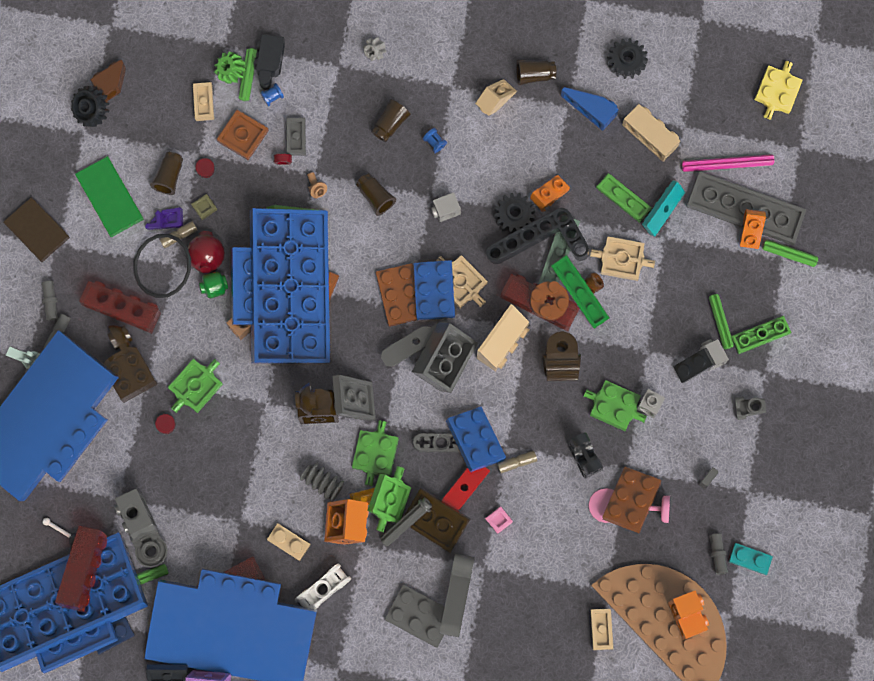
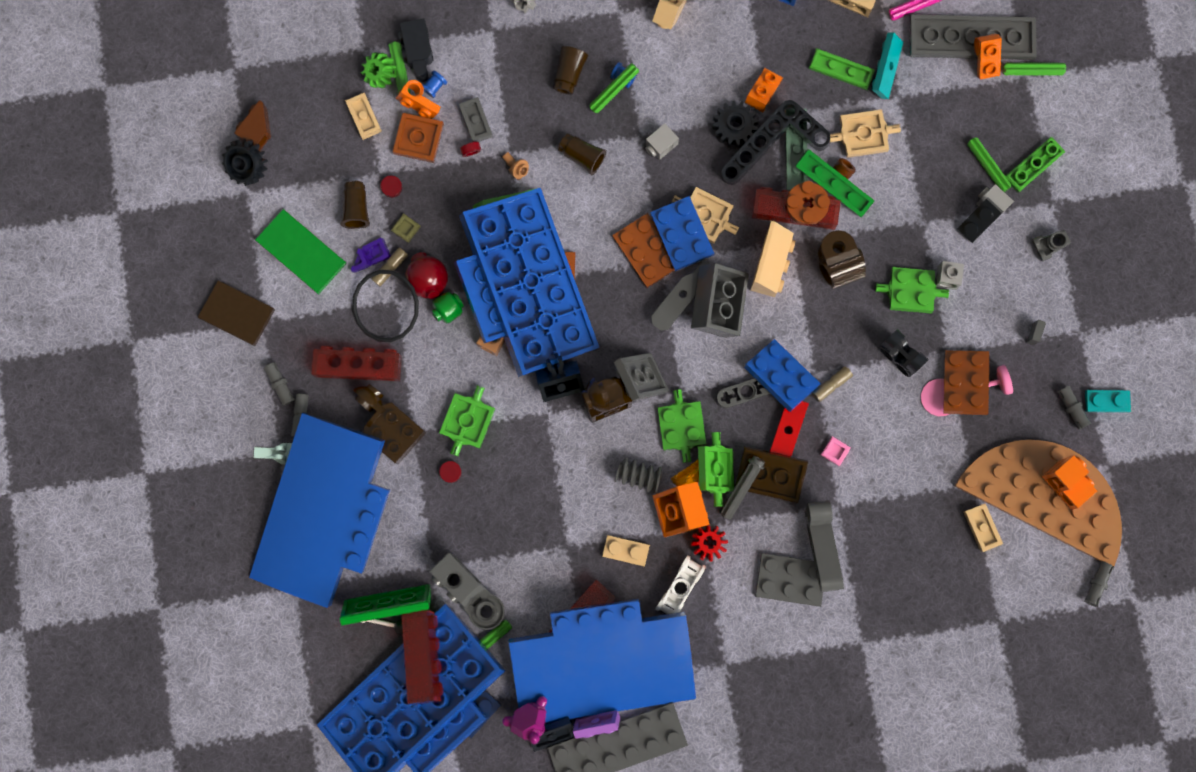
camera: 15 degrees left, 5 degrees up
(69, 515) = (385, 604): none -> green tile
(151, 654) = (528, 720): none -> magenta rock
(256, 111) = (418, 102): none -> orange plate
(284, 378) = (559, 380): none -> black brick
(355, 564) = (704, 548): none -> red gear
(422, 148) = (614, 88): none -> bright green axle

